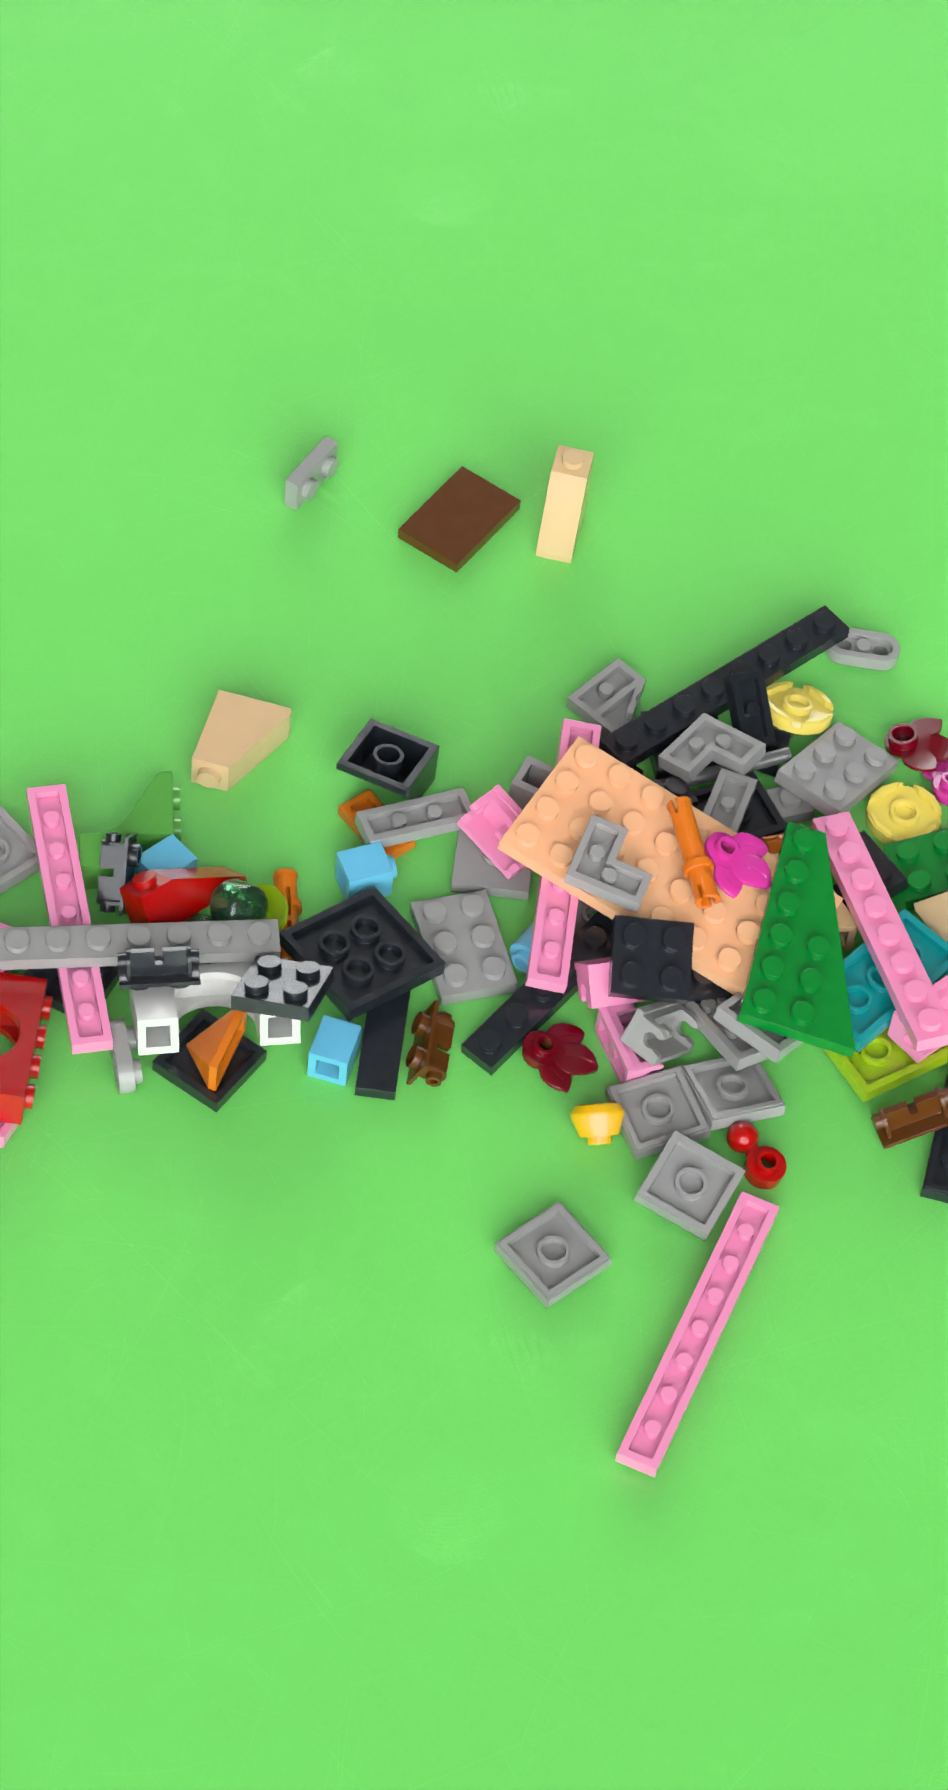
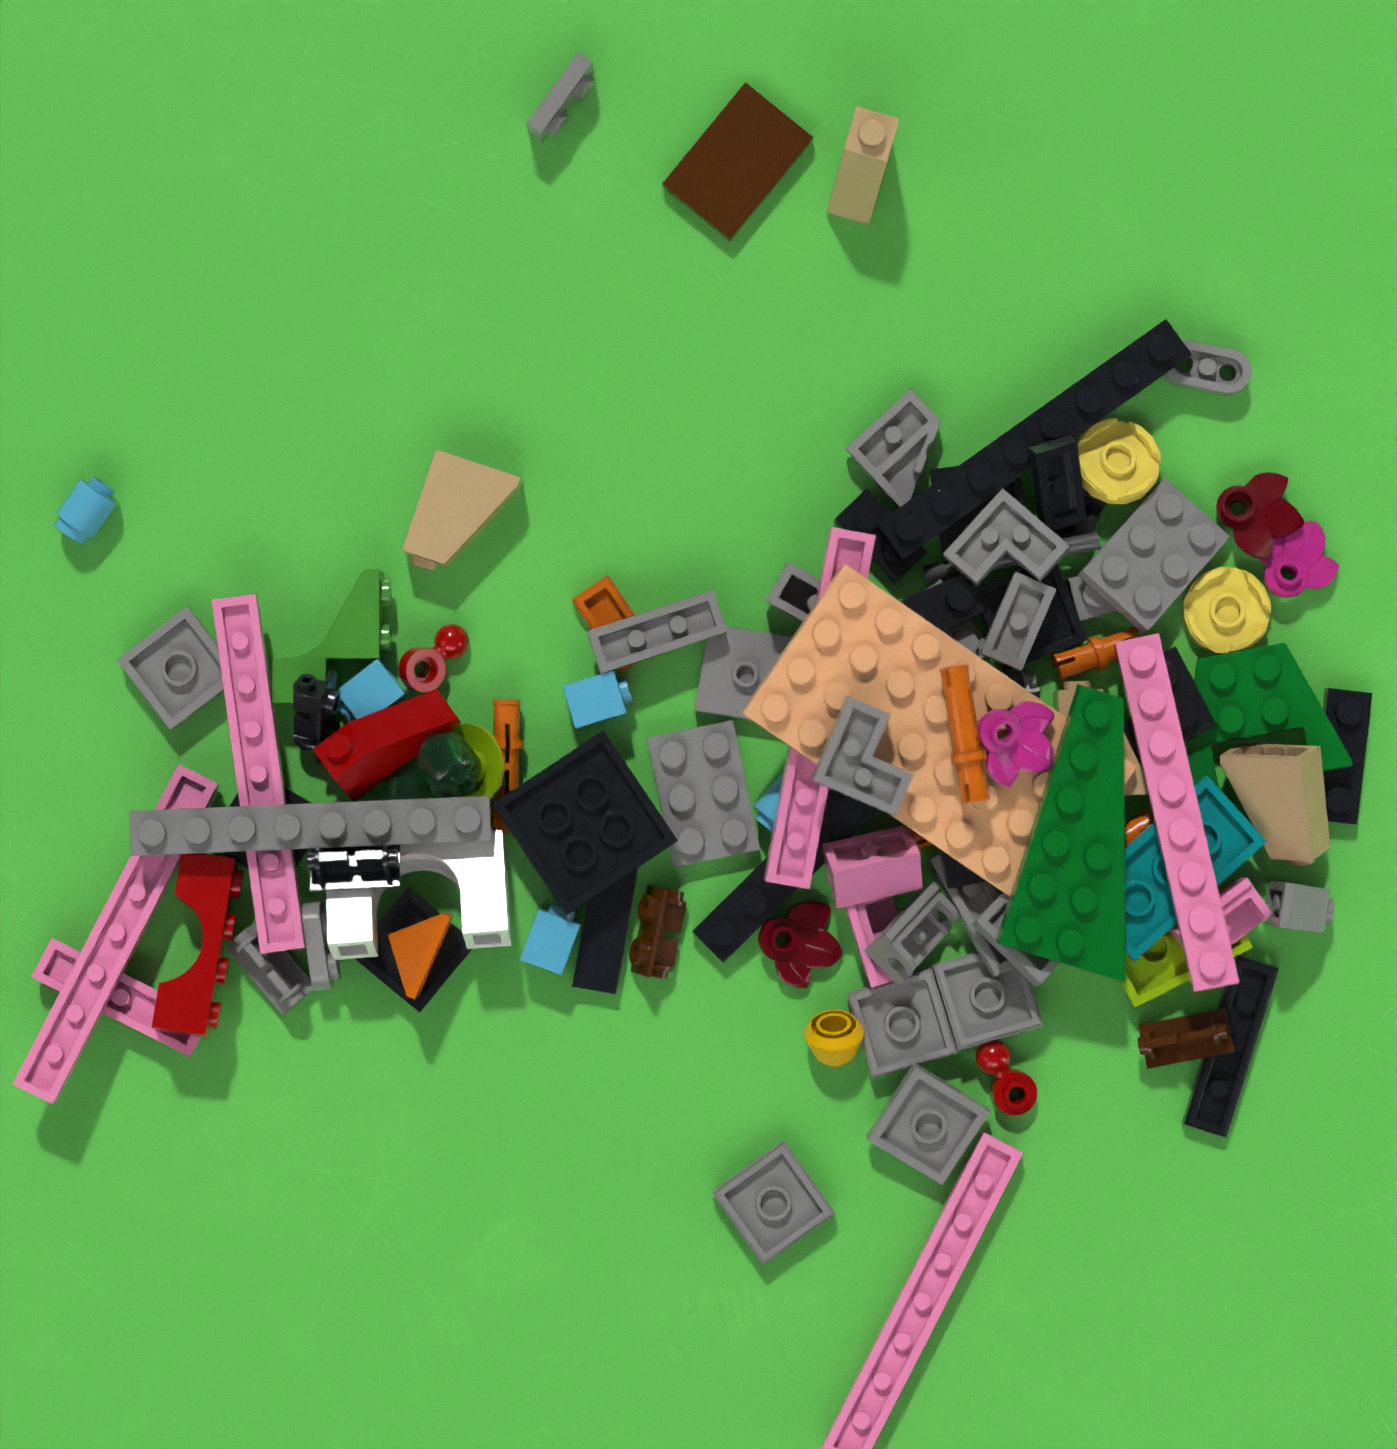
camera: 10 degrees right, 35 degrees up
(76, 1077) = (273, 972): none -> light grey hinge
(216, 849) = (449, 643): none -> red plate
(282, 988) = (489, 899): plate -> none
(391, 759) = (627, 562): black slope -> none
(488, 823) = (743, 652): bright pink hinge -> none
(651, 959) = (905, 868): black plate -> none

